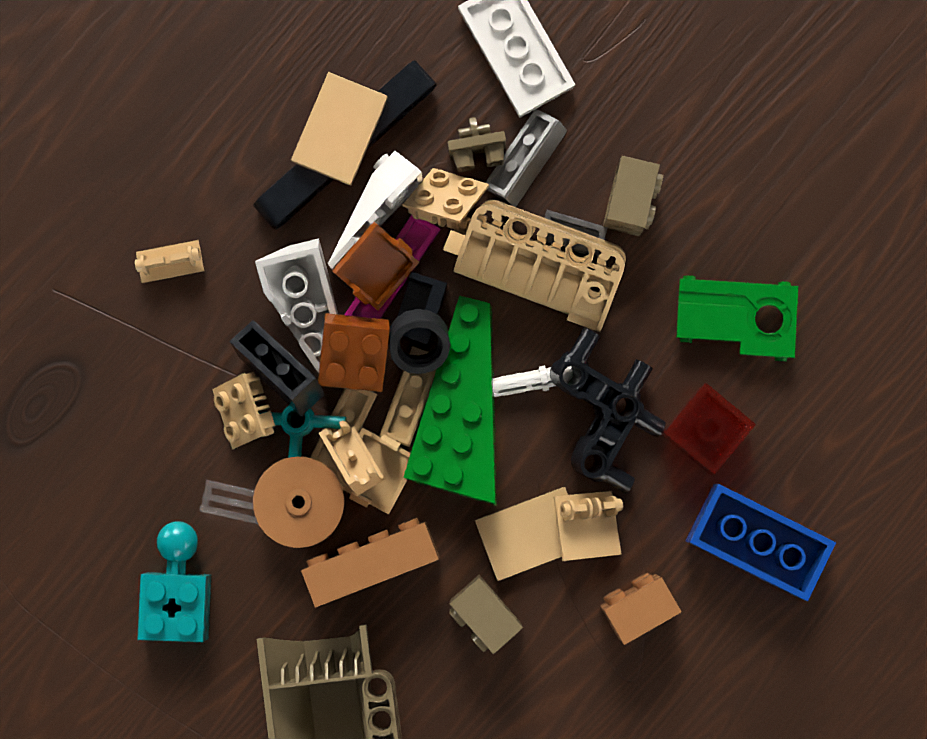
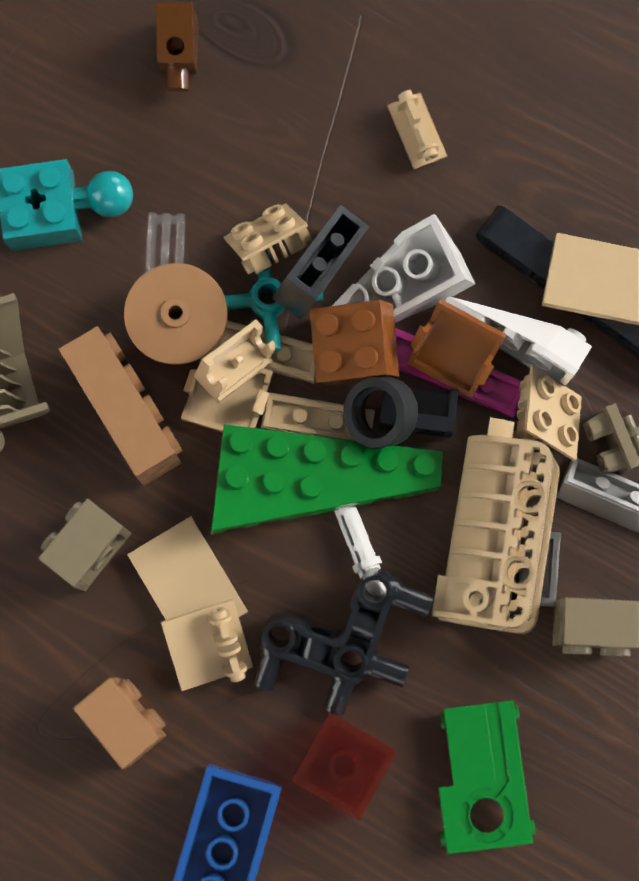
camera: 75 degrees right, 5 degrees down
(37, 455) = (177, 32): none -> reddish brown torso

